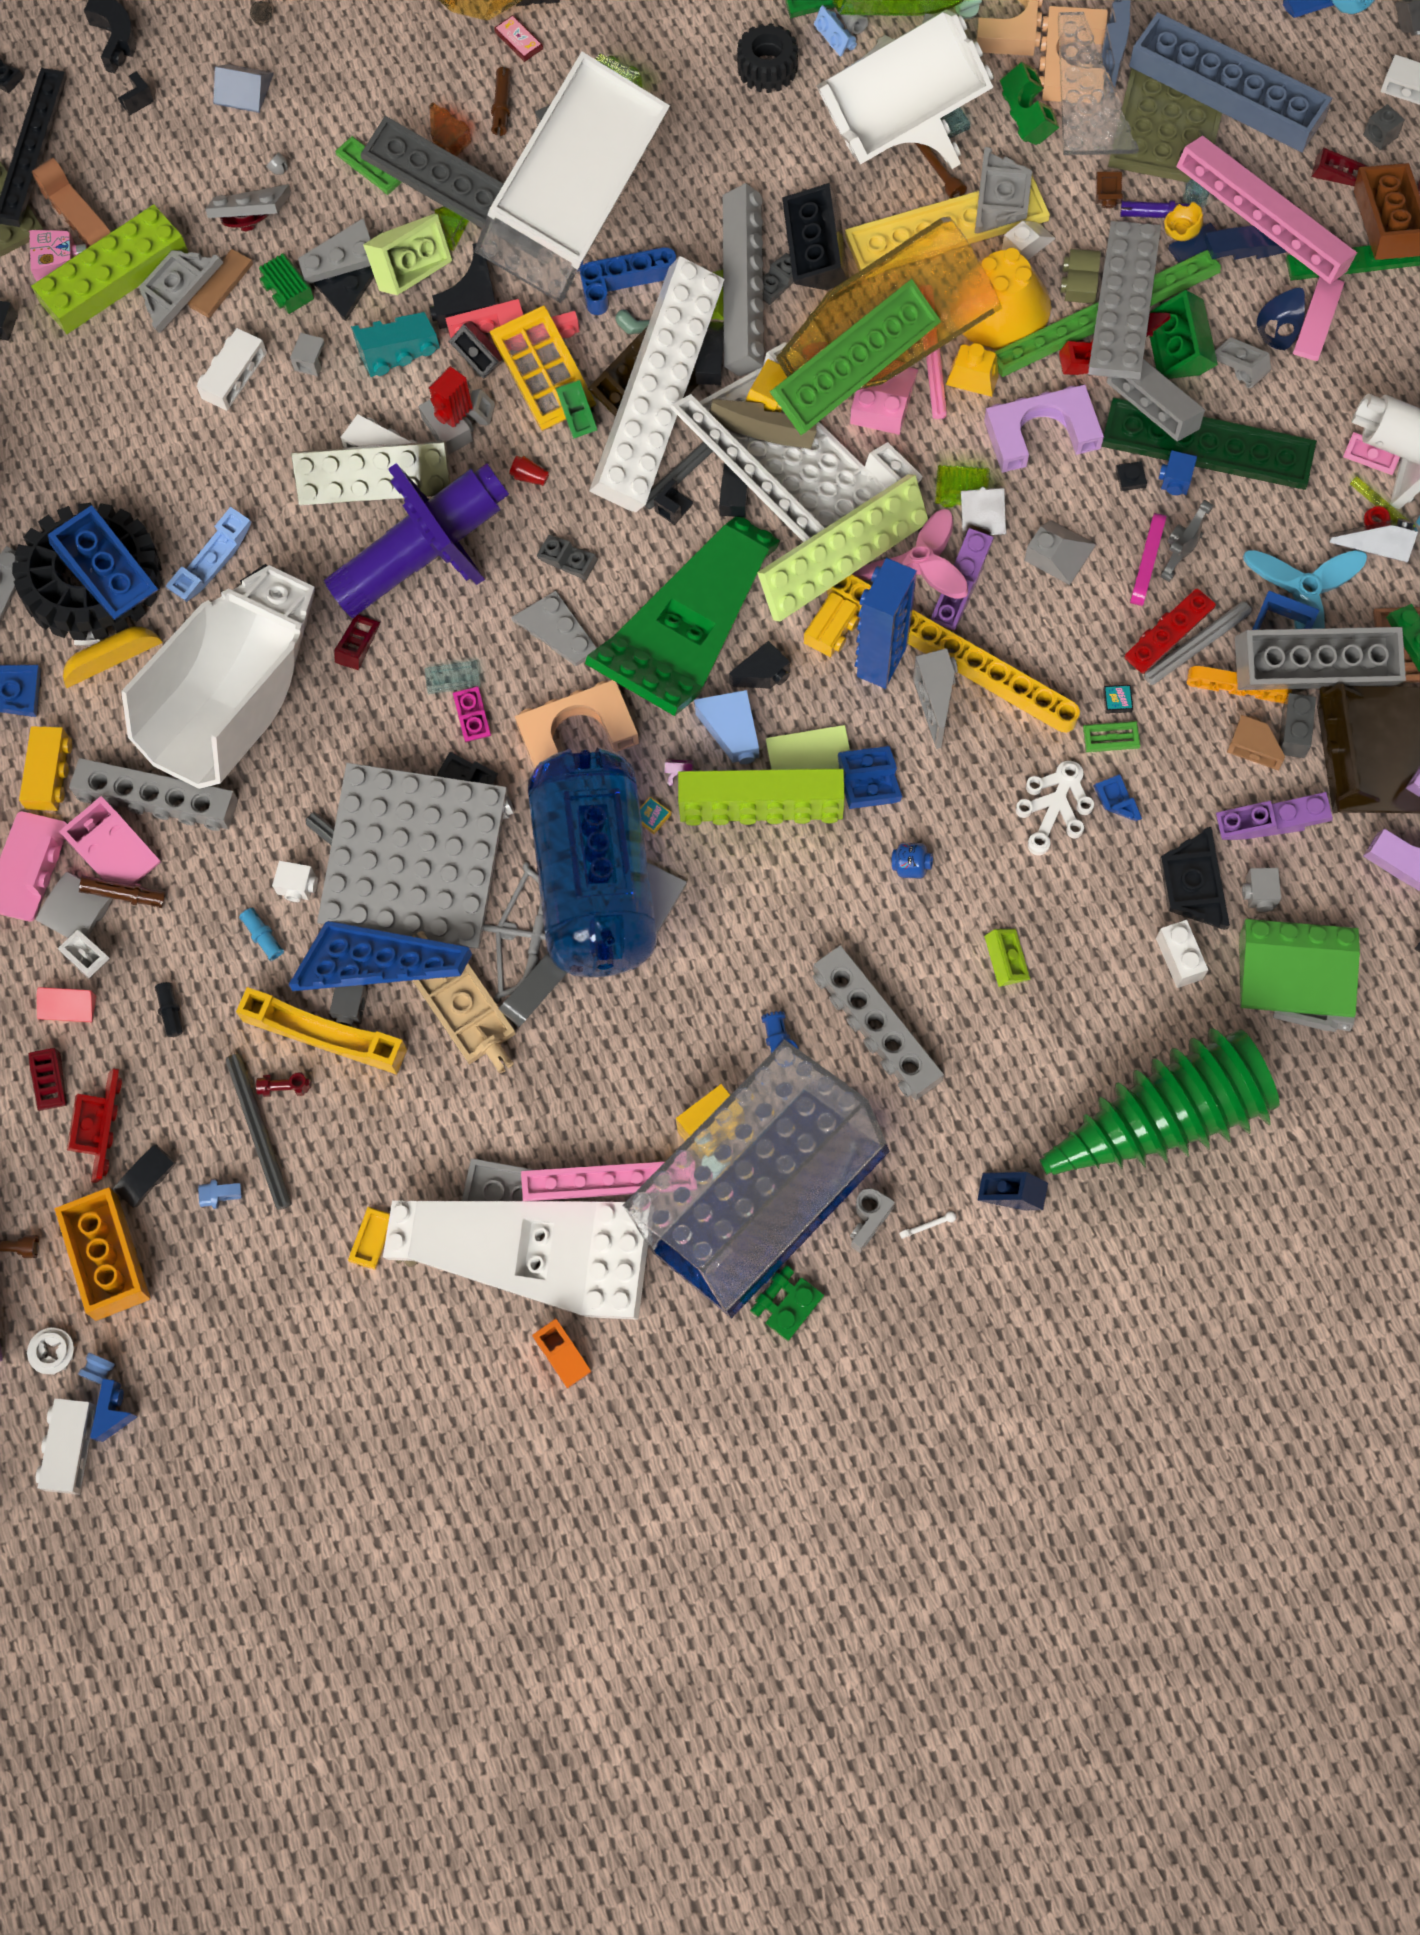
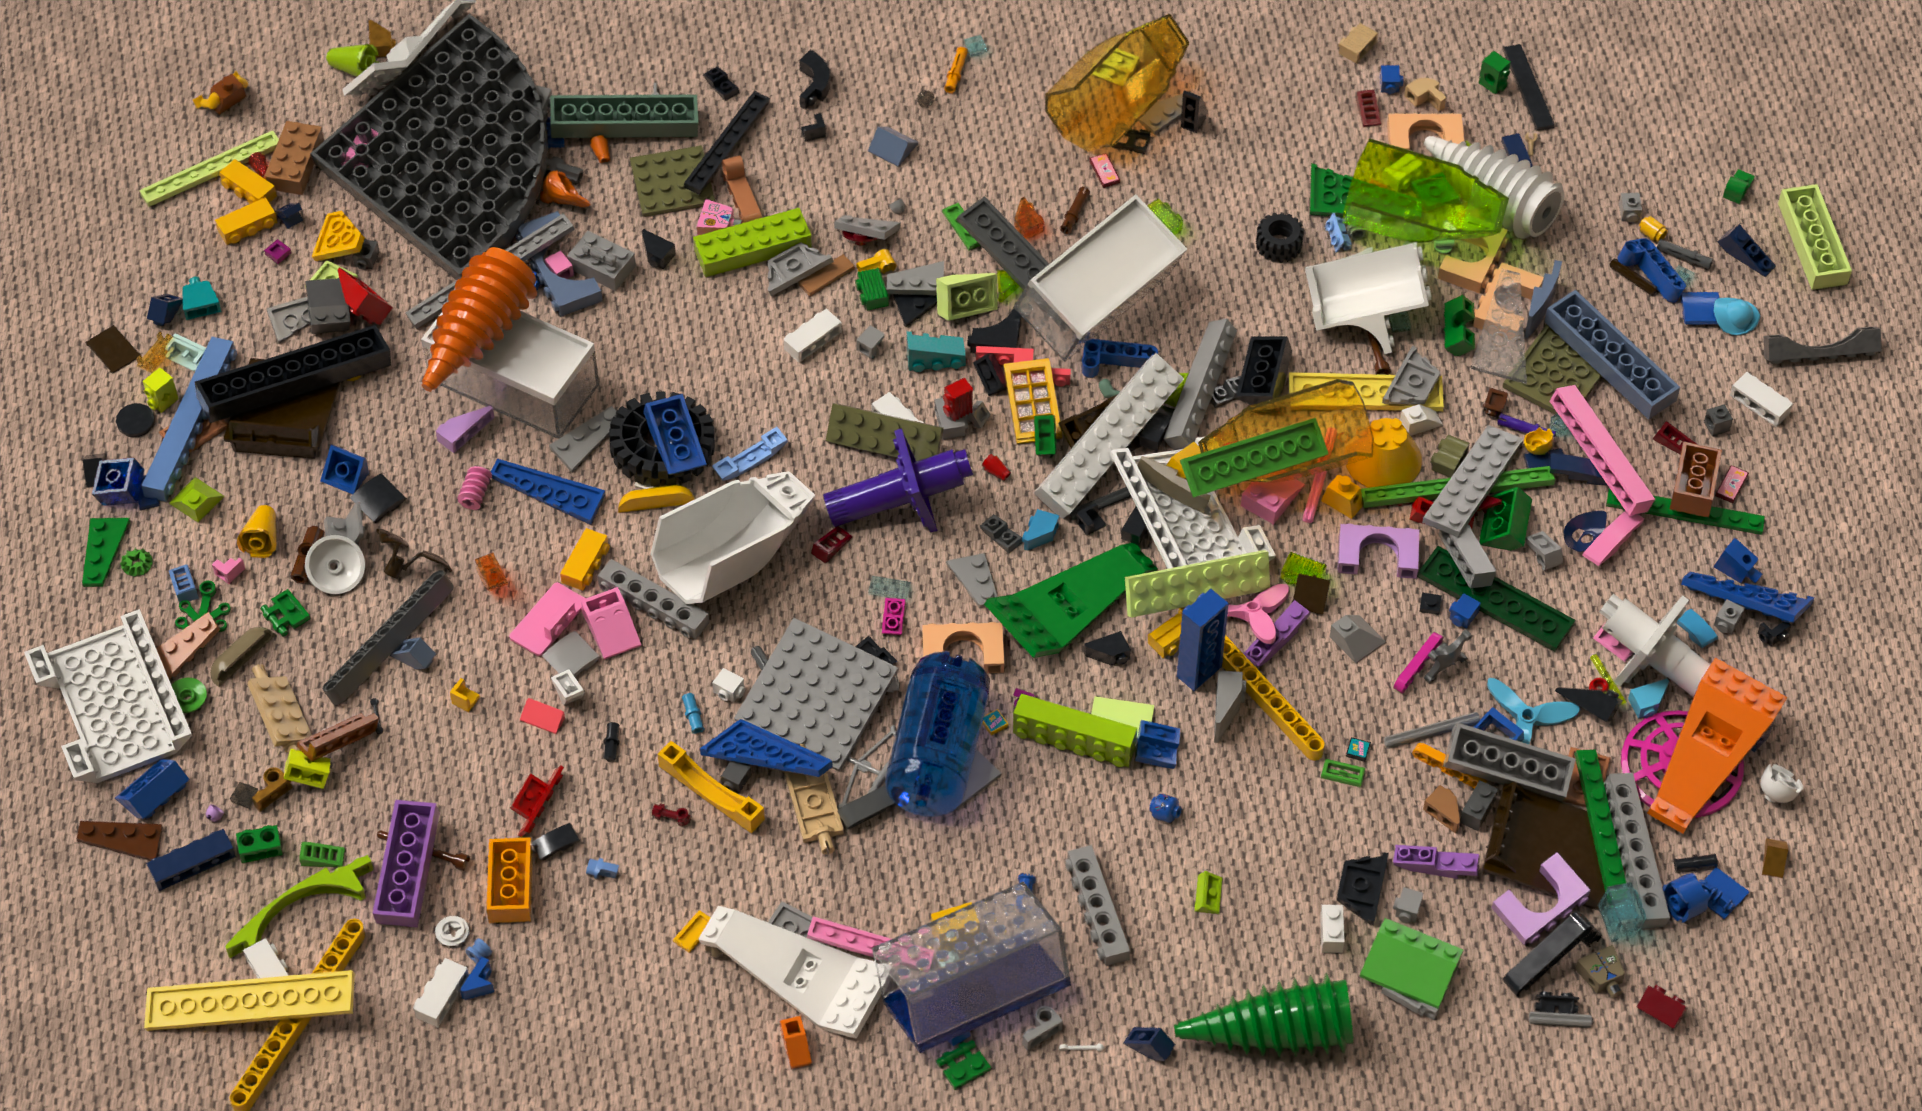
camera: 15 degrees right, 15 degrees down
(56, 1066) = (515, 747): dark red slope -> none
(116, 890) = (608, 655): reddish brown pin -> none
(258, 1132) = (643, 839): dark grey axle -> none
(283, 241) = (881, 259): none -> yellow piece
(617, 536) = (1041, 529): none -> dark azure slope
(730, 724) = (1072, 678): light blue slope -> none
(1056, 802) = (1283, 803): white plant -> none
(1116, 798) = (1329, 814): blue slope -> none
(1169, 630) = (1411, 713): red bracket -> none

